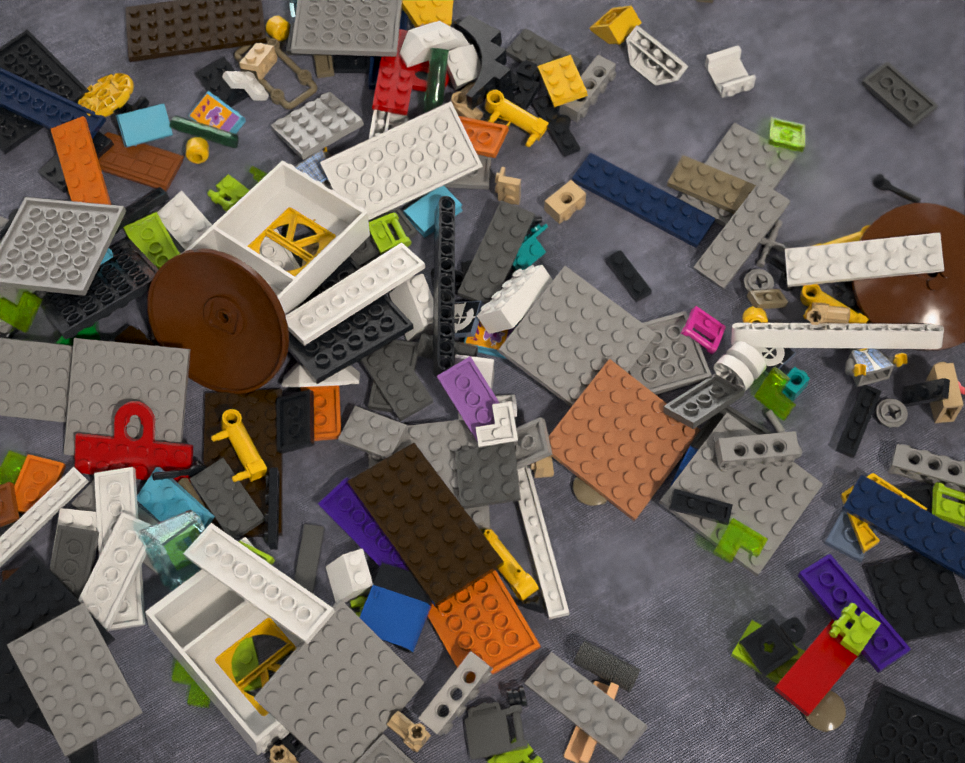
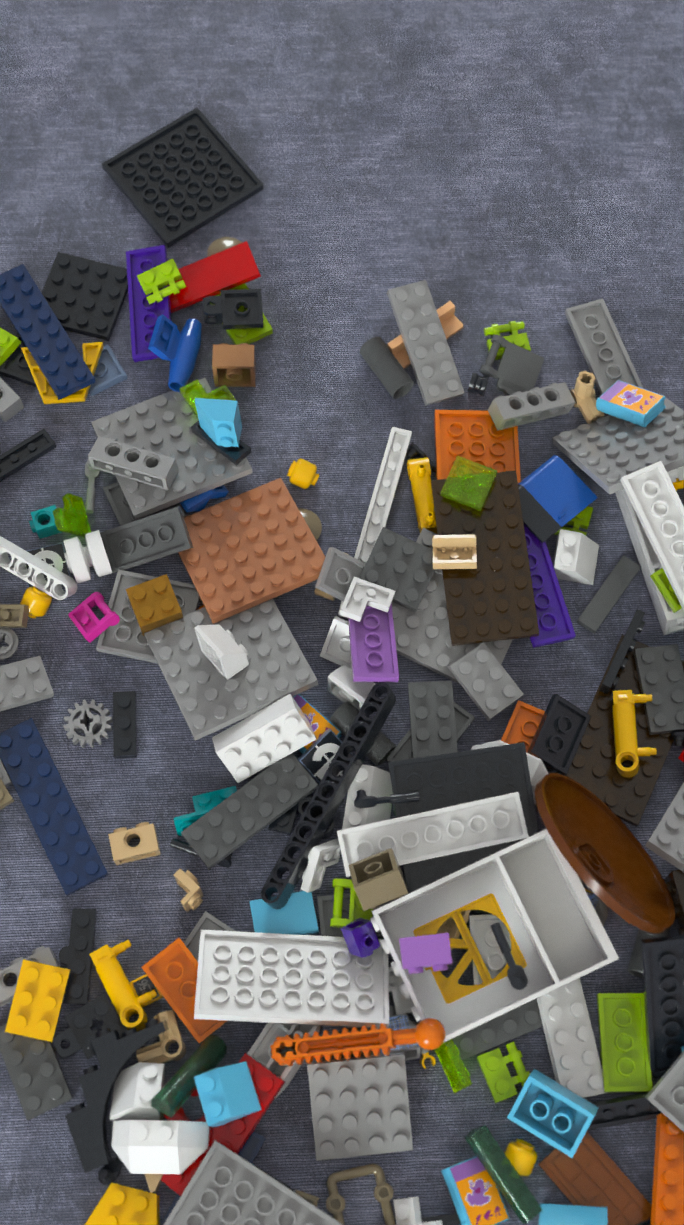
camera: 155 degrees left, 5 degrees up
(185, 175) = (552, 1113): none -> medium azure brick
(245, 219) = (515, 972): none -> black piece
(314, 195) = (425, 952): none -> medium lavender brick
(335, 138) = (428, 1034): none -> orange gear
(364, 732) = (631, 403): none -> piece
(372, 206) = (360, 937): none -> dark purple brick
(375, 238) = (378, 879): none -> dark tan brick
(404, 78) = (227, 1094): none -> medium azure slope
(418, 292) = (365, 801): none -> black piece
(427, 245) = (320, 858): none -> white plate
(446, 500) = (454, 551): none -> tan bracket
(467, 565) = (468, 483): none -> clear neon green plate
(584, 329) = (222, 649): none -> white slope
(618, 530) = (303, 473): none -> yellow head
(653, 259) = (97, 722): none -> light grey gear
(662, 355) = (154, 603): none -> pearl gold brick
(706, 503) = (220, 420): none -> medium azure slope
(738, 590) = (234, 365): none -> medium nougat brick
(796, 577) = (177, 347): none -> blue plate

